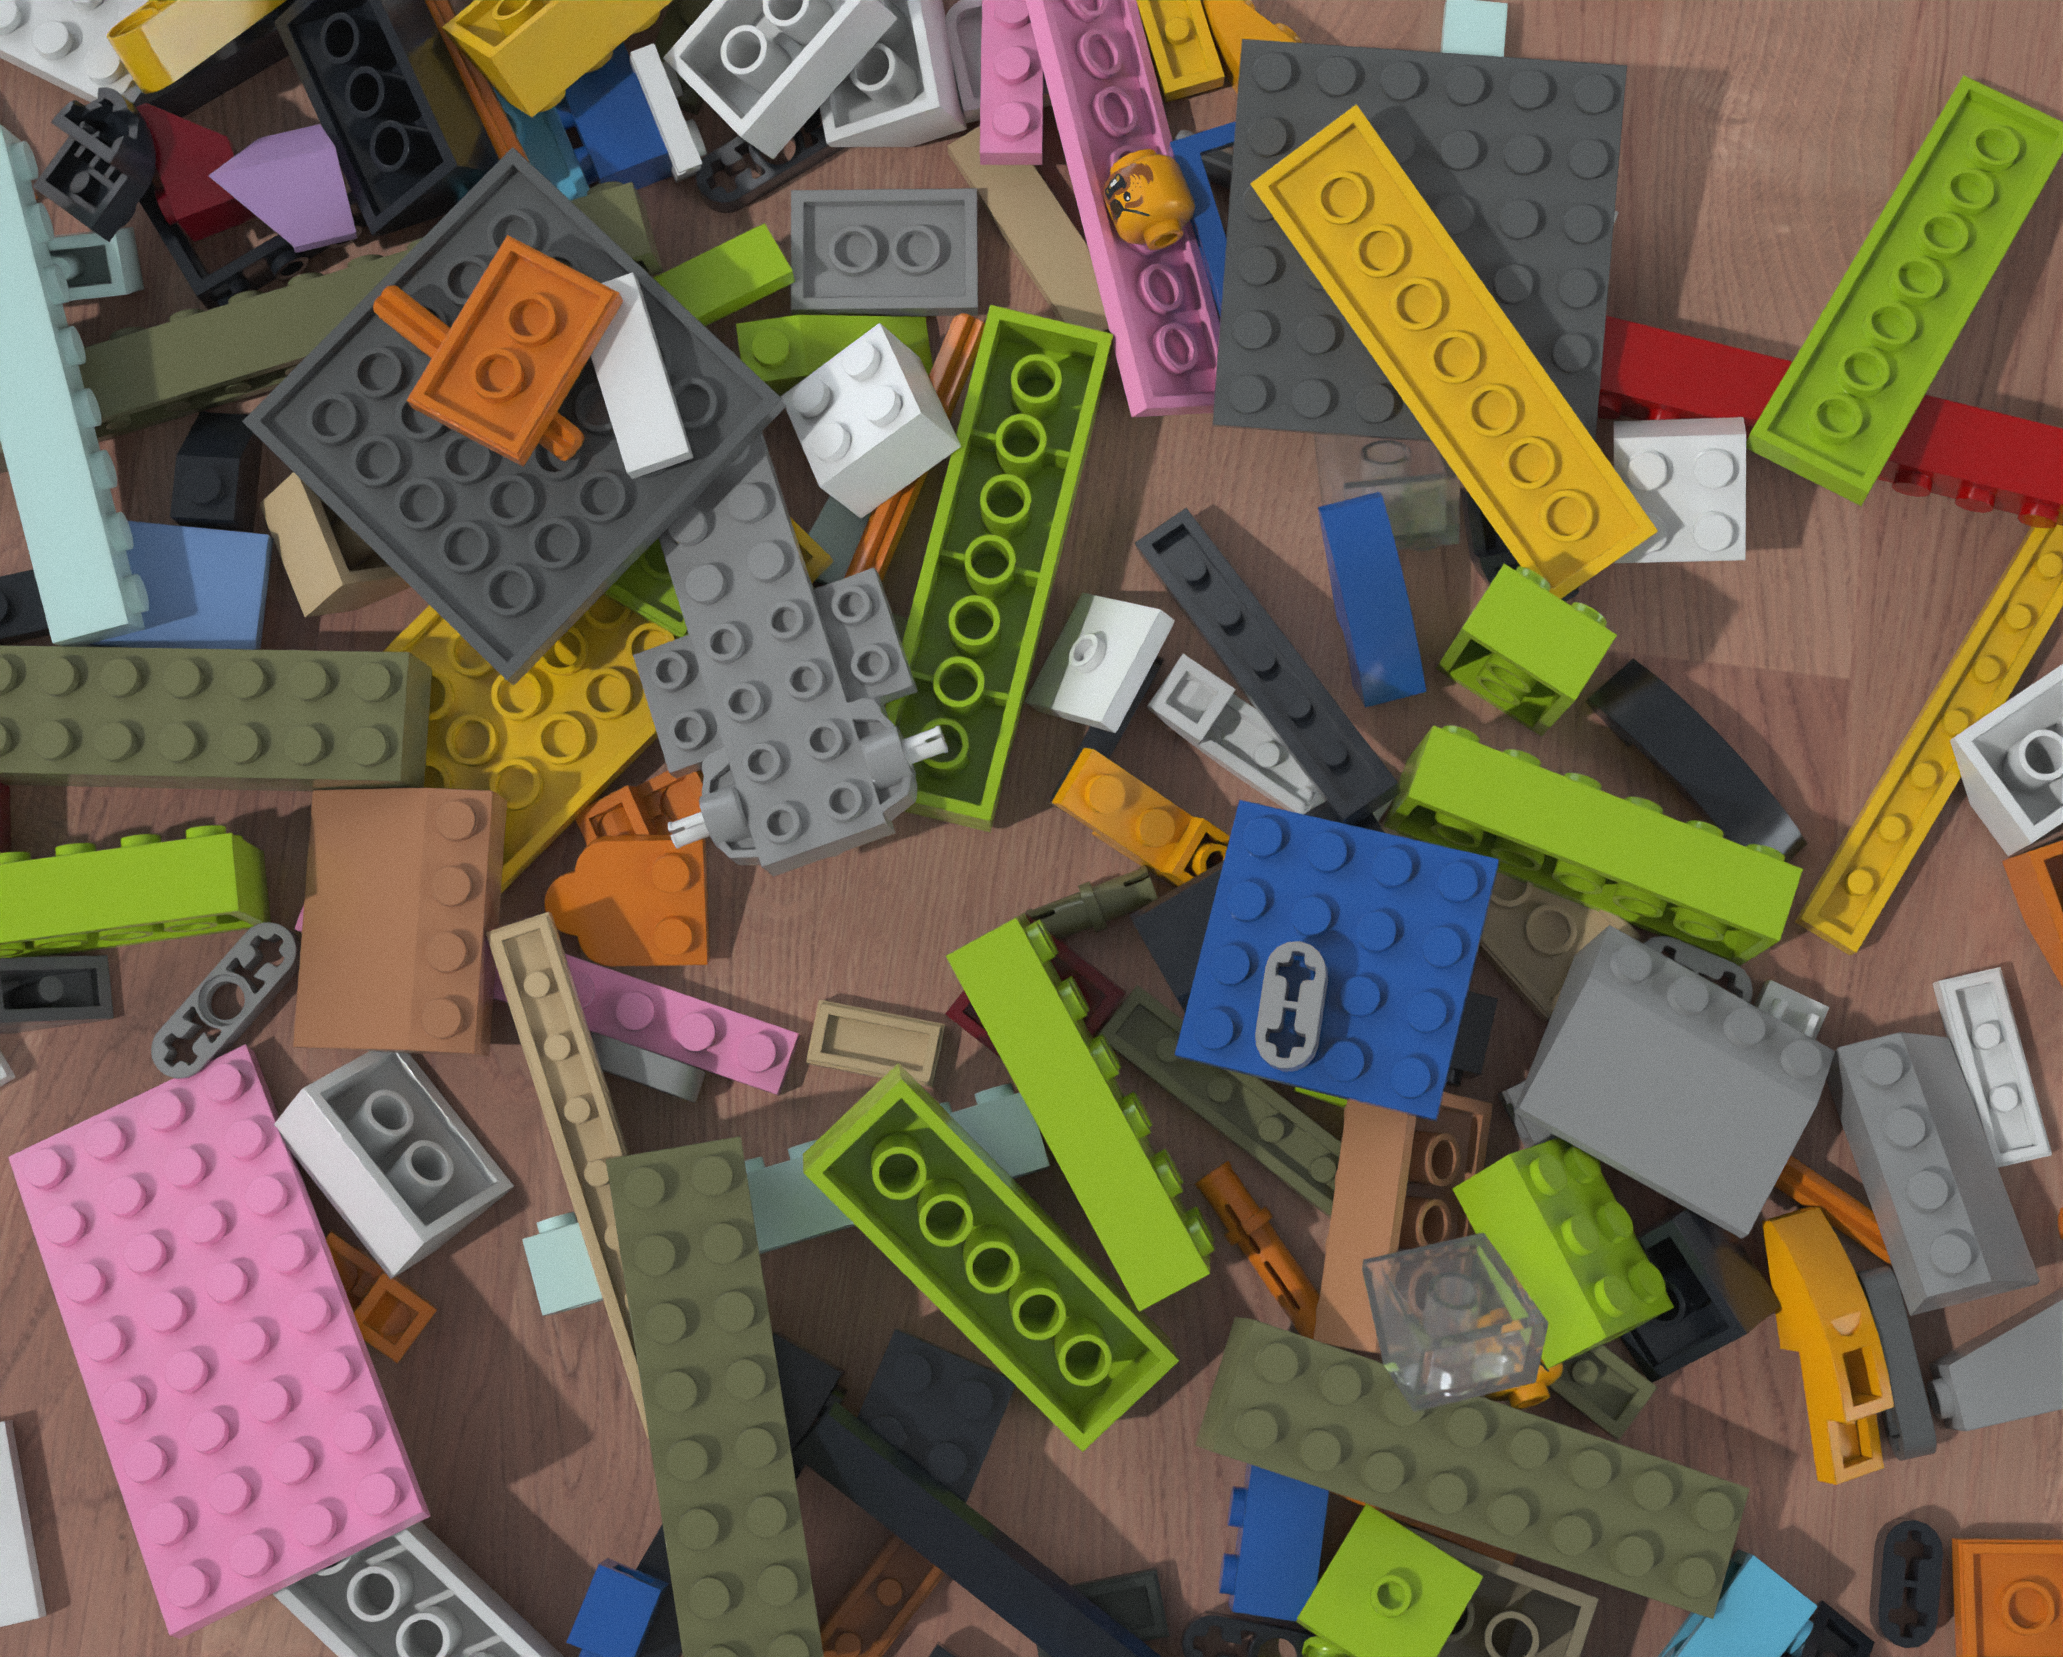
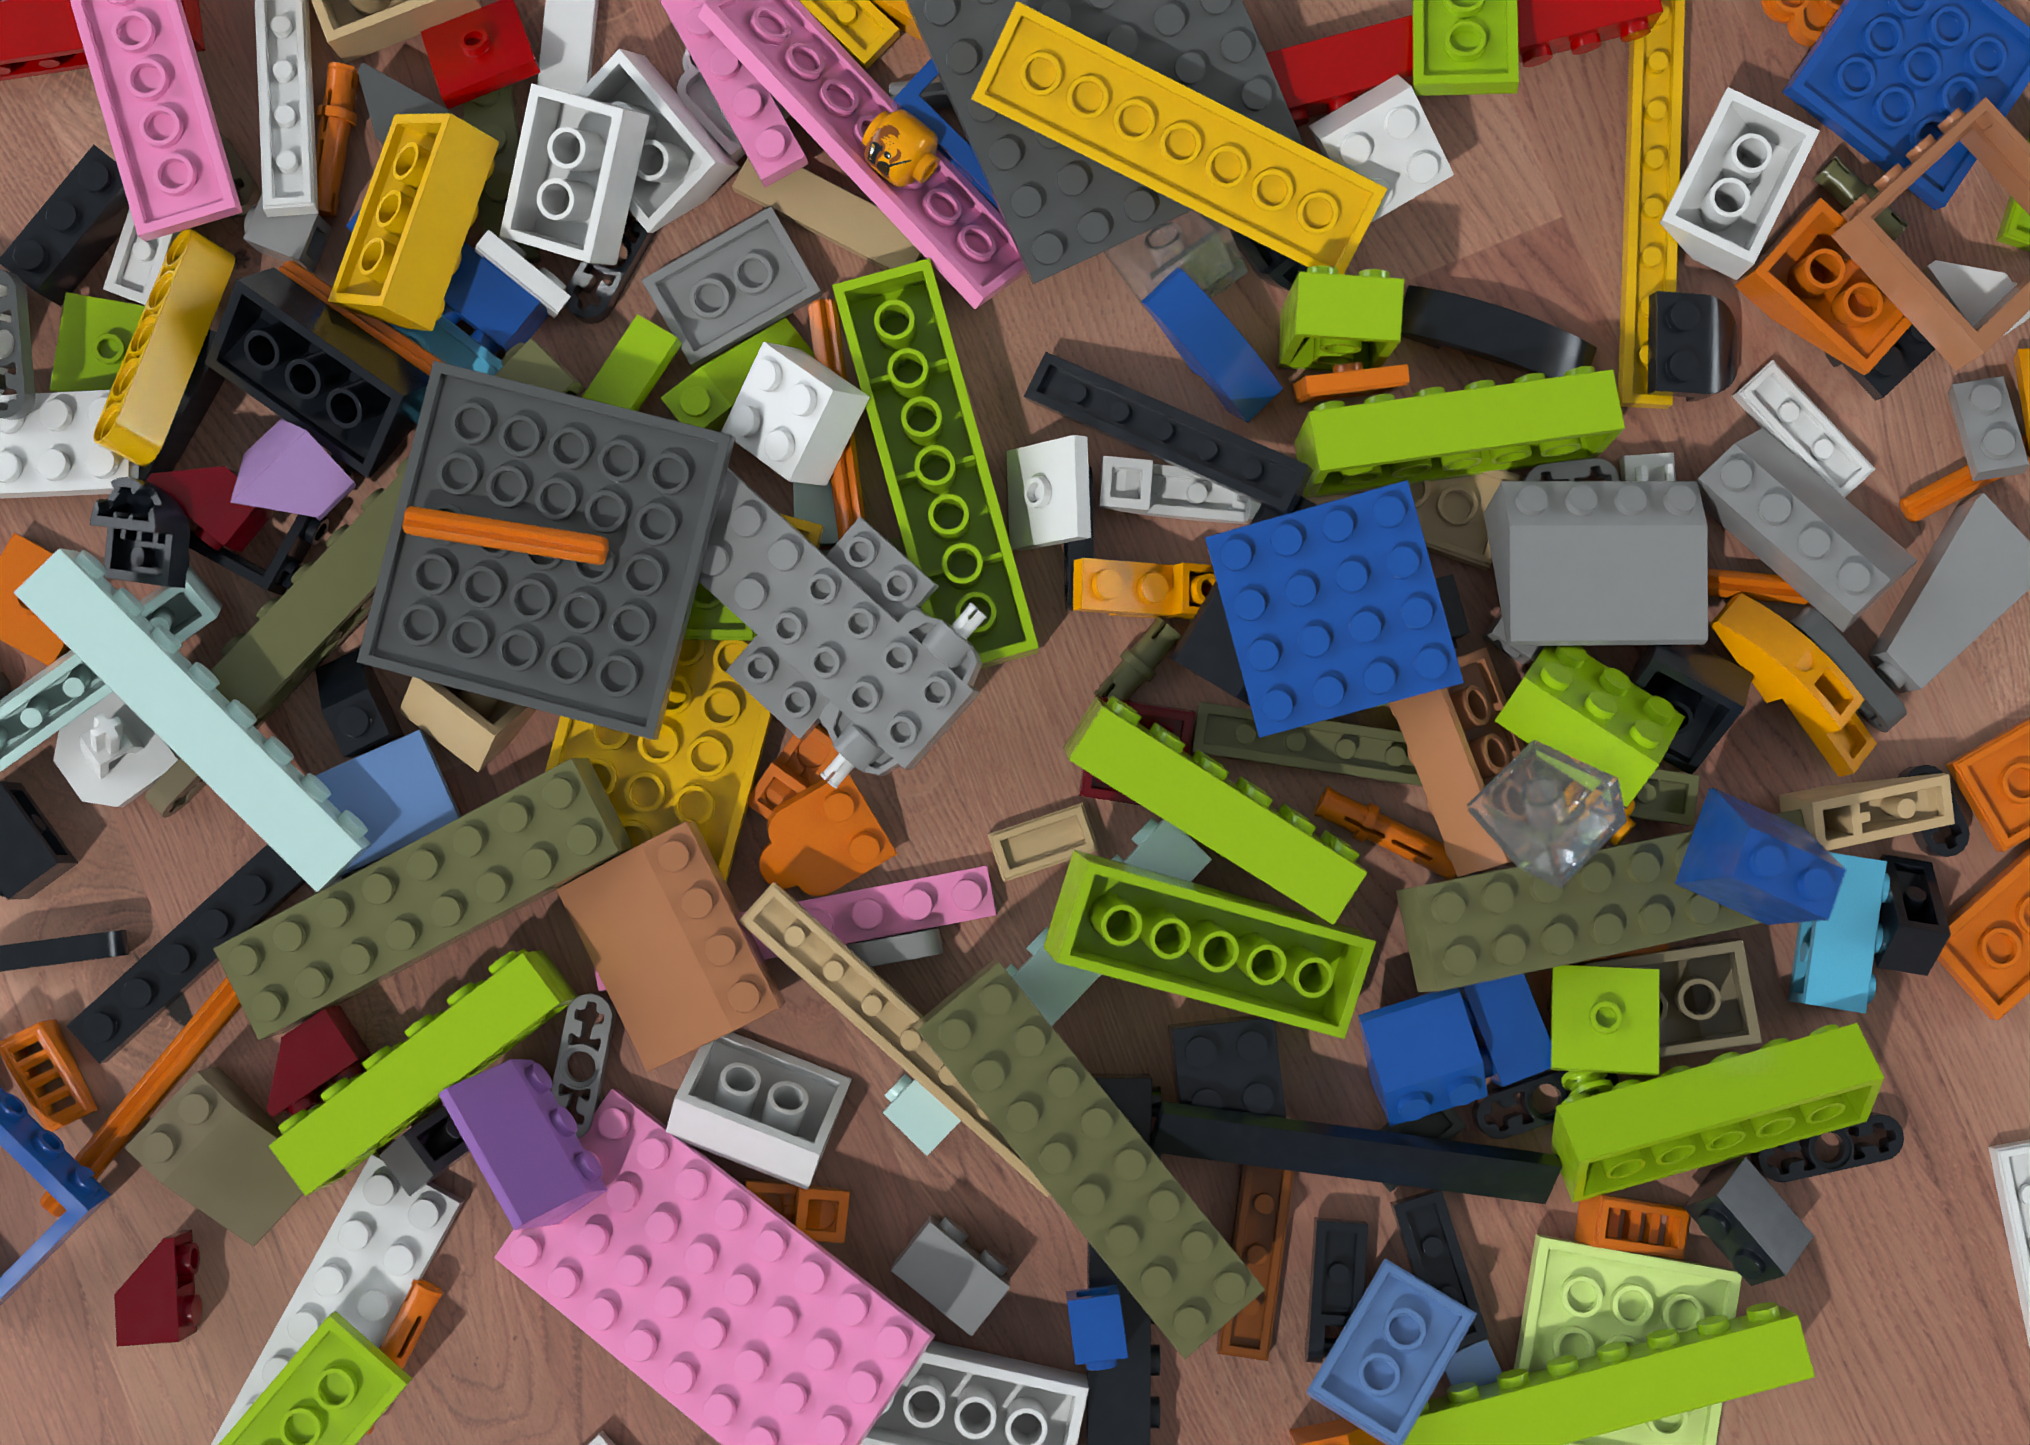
camera: 30 degrees left, 5 degrees up
(111, 1045) = (524, 1143): none -> medium lavender slope
(496, 1466) = (953, 1273): none -> light grey brick
(515, 350) = (525, 505): orange tile -> none
(638, 387) = (616, 477): white tile -> none
(1161, 1523) = (1422, 1056): none -> blue slope
(1275, 1004) = (1312, 666): light grey beam -> none
(1502, 724) = (1350, 381): none -> orange plate
(1659, 1515) = (1759, 864): none -> blue slope
(1834, 1538) = (1873, 809): none -> tan slope
(1913, 898) = (1690, 345): none -> black slope

